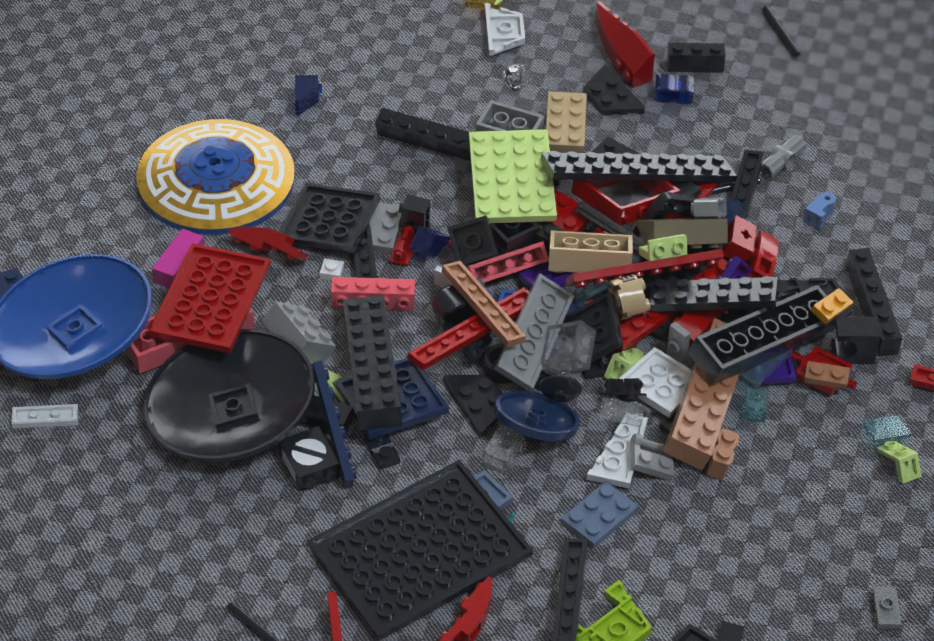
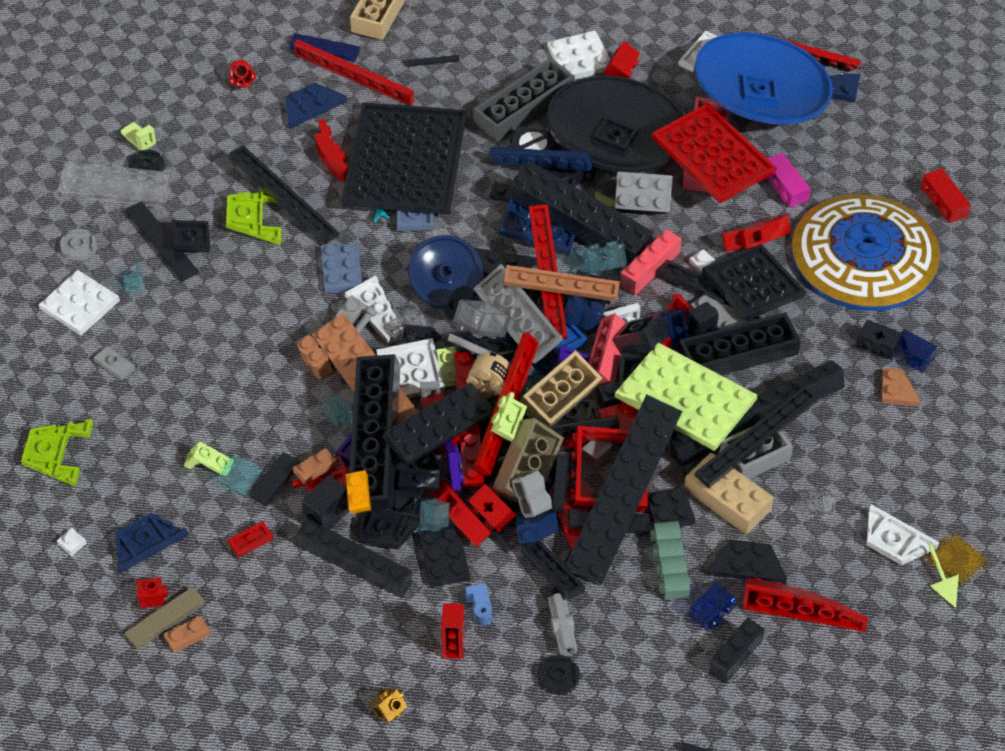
camera: 130 degrees right, 5 degrees up
(101, 151) = (945, 195): none -> red brick
(125, 454) = (622, 61): none -> red brick
(136, 505) = (580, 54): none -> white plate
(252, 498) = (521, 100): none -> dark grey brick
(315, 118) = (879, 339): none -> black brick
(353, 92) = (897, 388): none -> nougat wing
(397, 176) = (743, 344): none -> black brick
(406, 315) = (615, 257): none -> clear light blue brick
(504, 119) = (756, 436): none -> black tile
(661, 127) = (671, 560): none -> sand green brick
(785, 267) = (434, 514): none -> clear light blue brick
(804, 257) = (444, 556): none -> black plate
(821, 141) = (558, 675): none -> black tile
(861, 406) = (274, 479): none -> black tile
(871, 189) = (453, 631): none -> red brick

